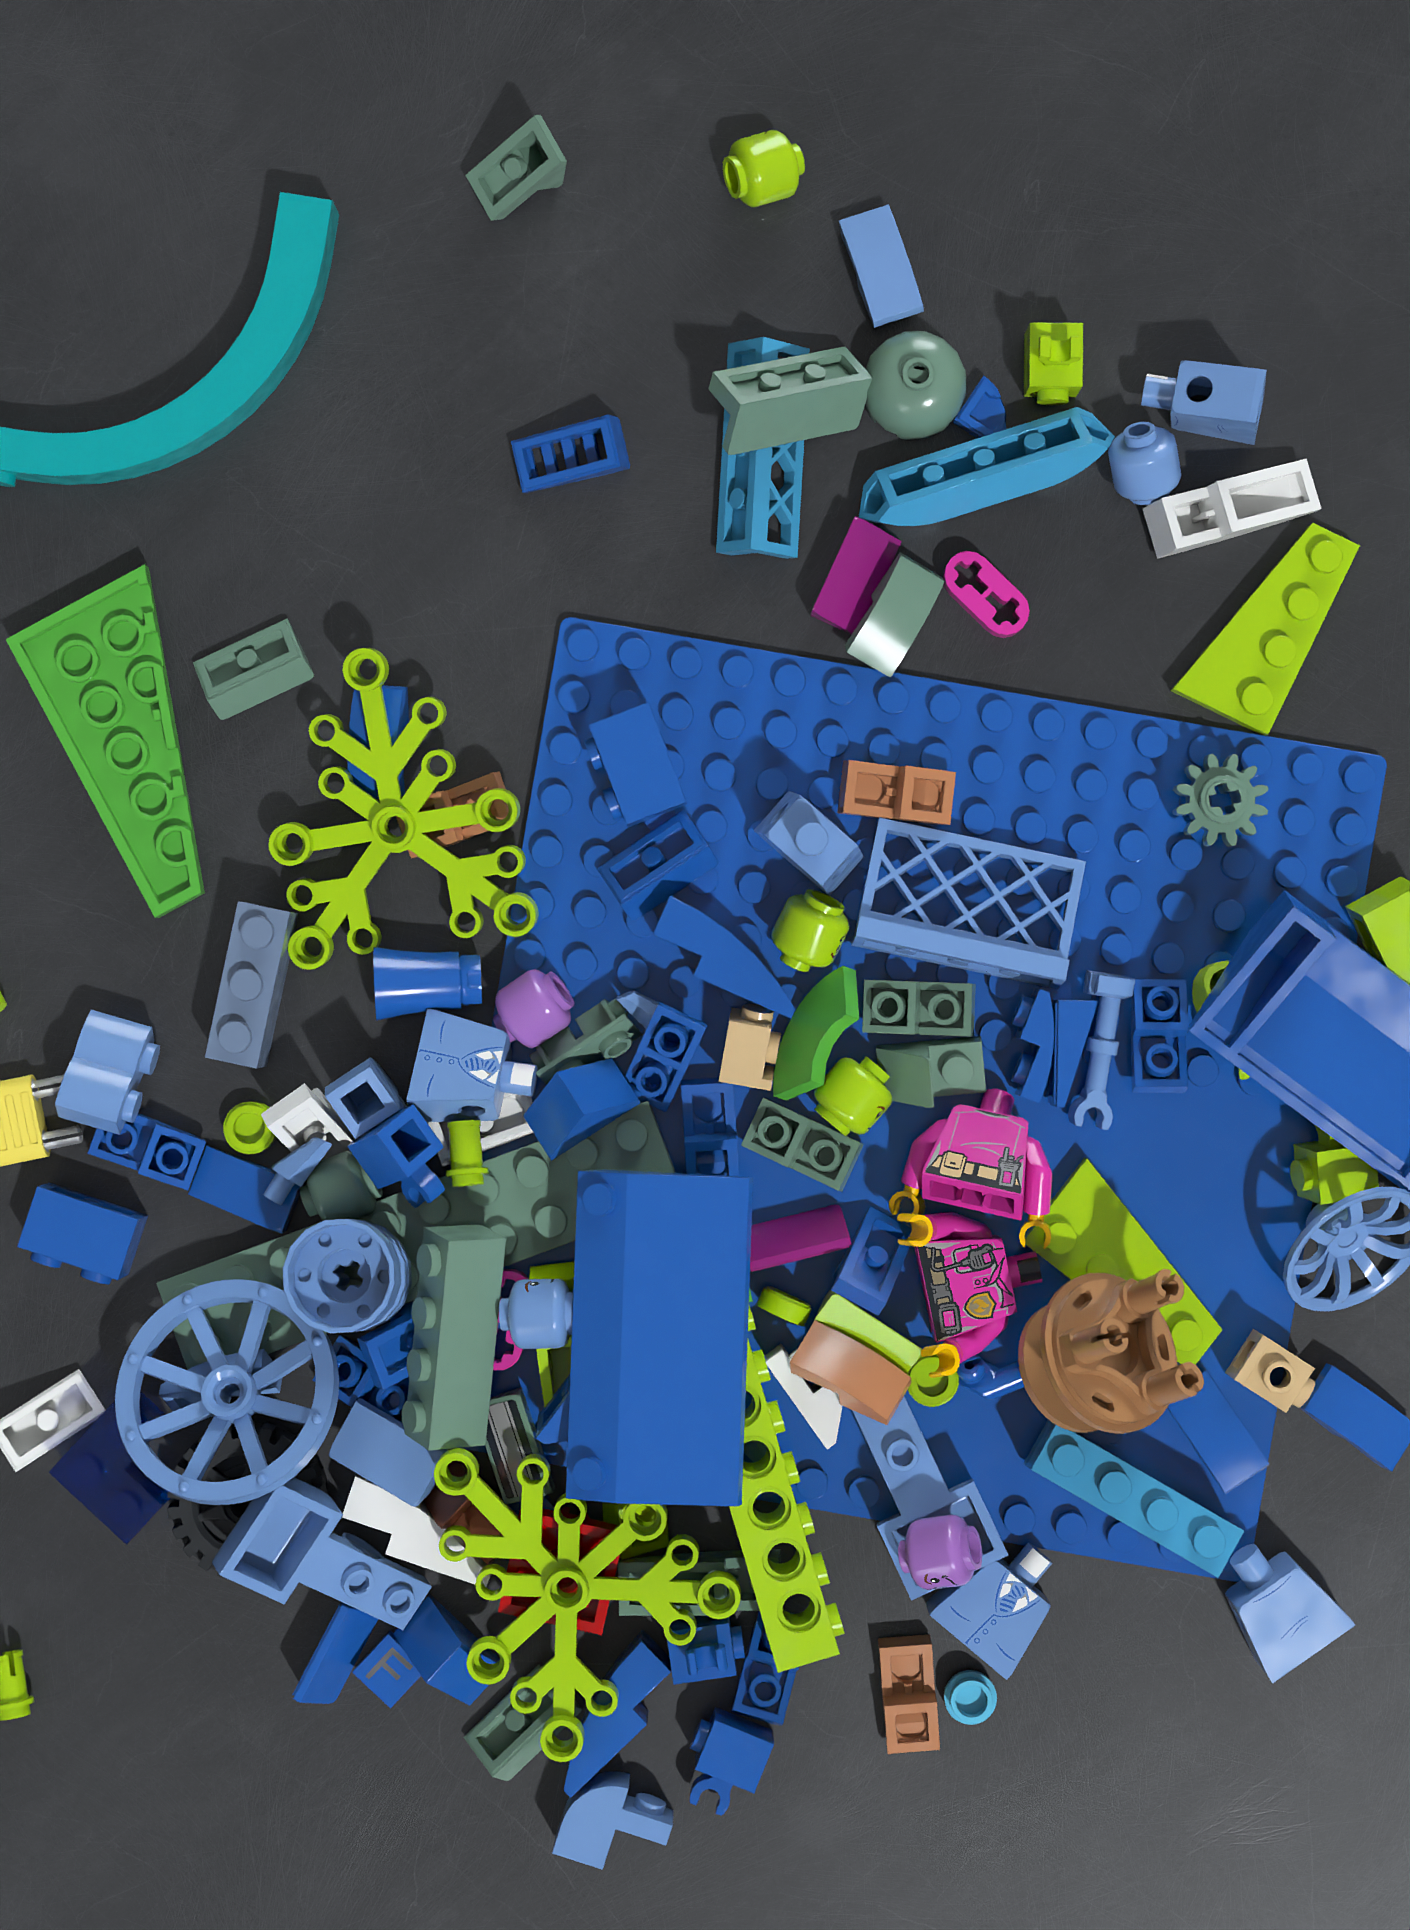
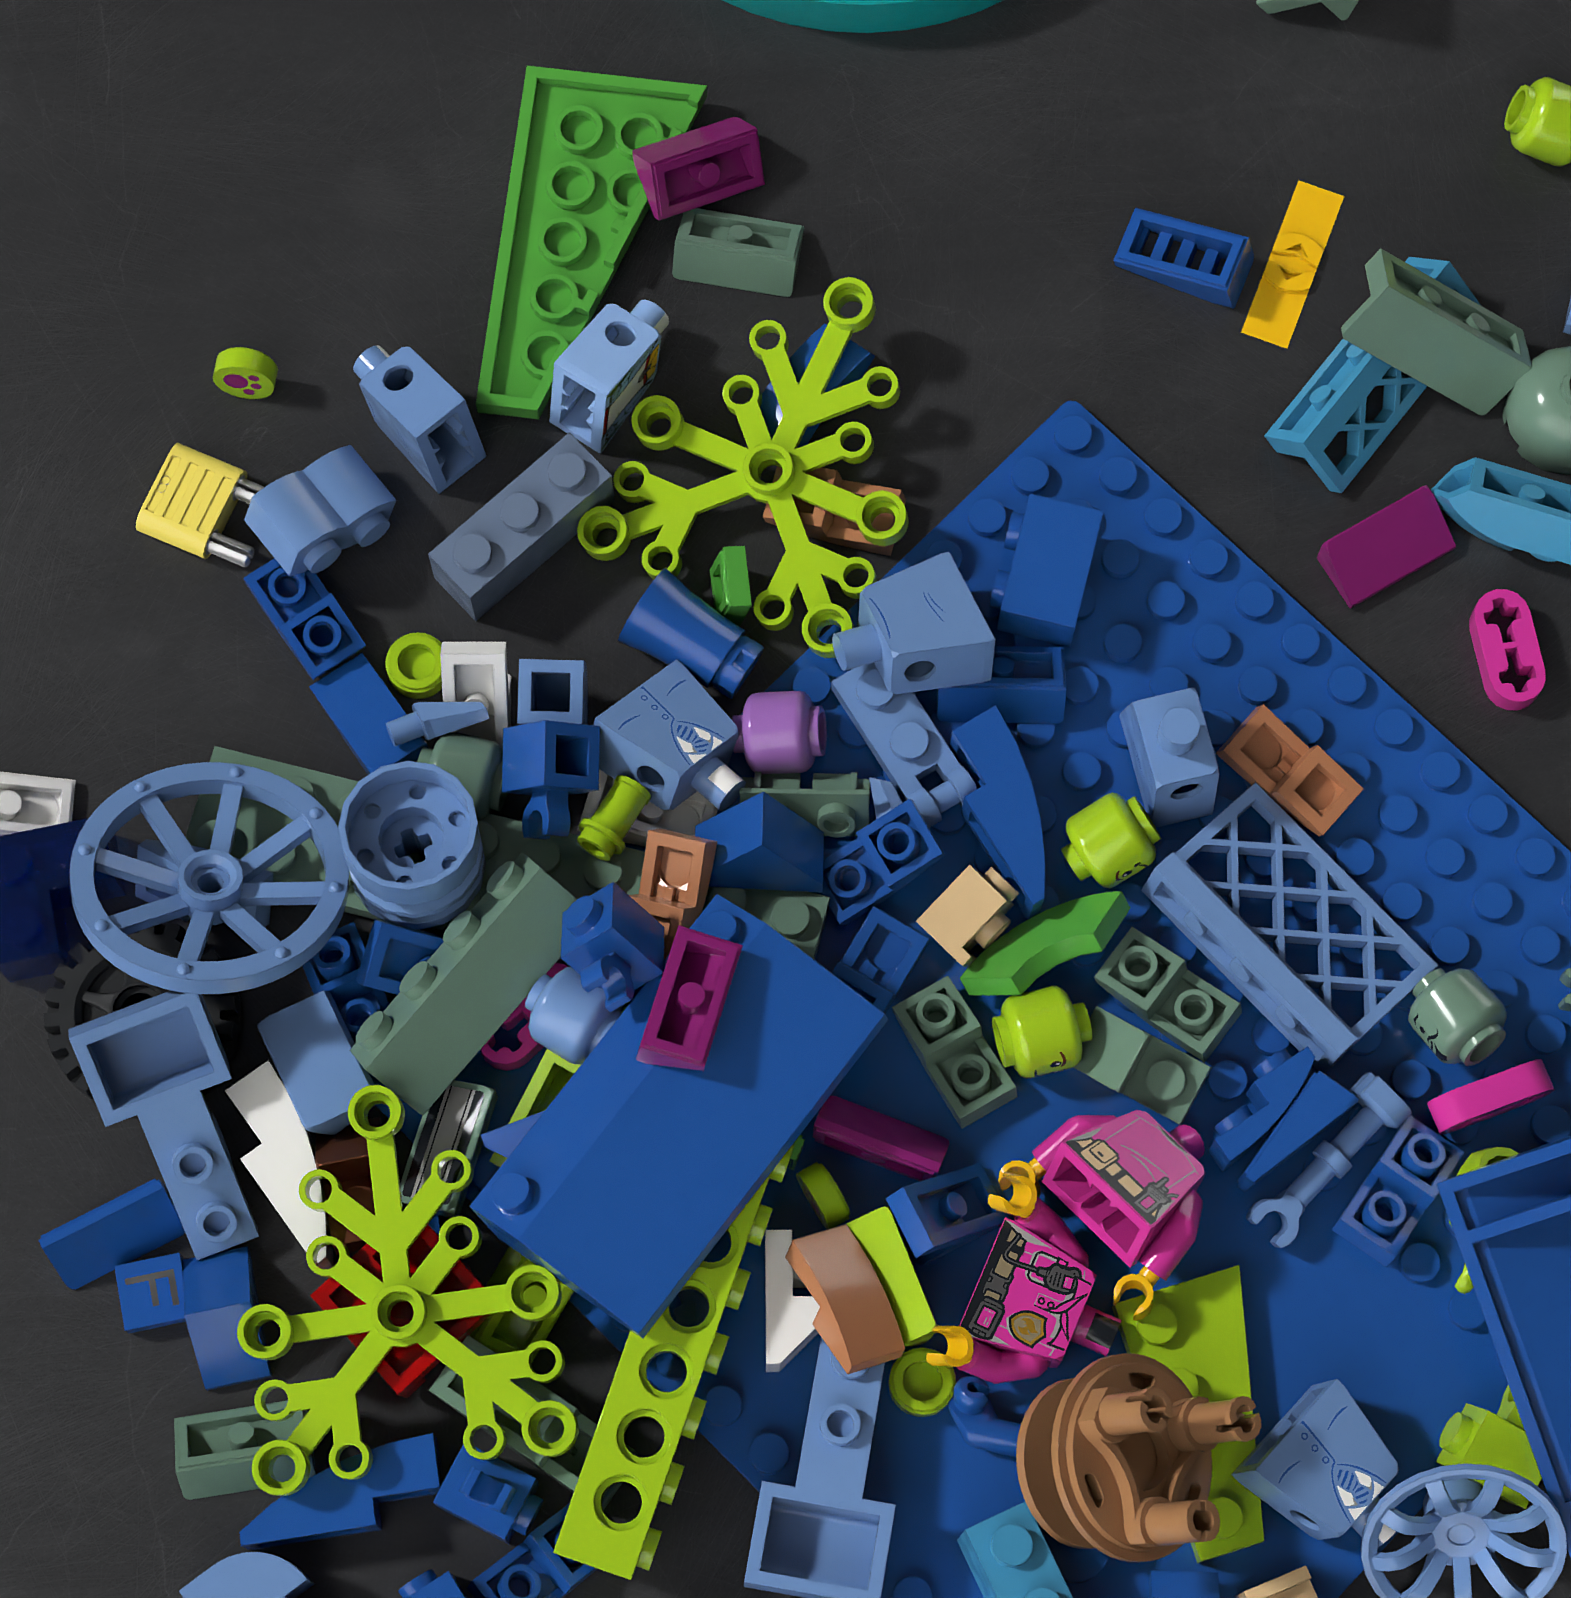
camera: 30 degrees right, 15 degrees down
(81, 1233) = (182, 647): blue brick -> none
(120, 955) = (420, 414): none -> medium blue torso
(183, 629) = (700, 166): none -> magenta slope
(230, 849) = (606, 372): none -> light blue torso
(425, 925) = (731, 584): none -> bright green tile
(535, 1259) = (612, 944): none -> blue brick
(544, 1184) = (675, 879): none -> nougat slope
(580, 877) = (920, 630): none -> medium blue torso
(615, 1266) = (689, 1000): none -> magenta slope
(619, 953) = (903, 741): none -> medium blue plate
(648, 403) = (1292, 264): none -> yellow piece
(896, 614) = (1403, 605): sand green slope -> none
(940, 1552) = (812, 1544): medium lavender head -> none
(1123, 891) = (1457, 1016): none -> sand green head
(1180, 931) = (1490, 1096): none -> dark pink beam
(1229, 1256) = (1321, 1465): none -> medium blue torso

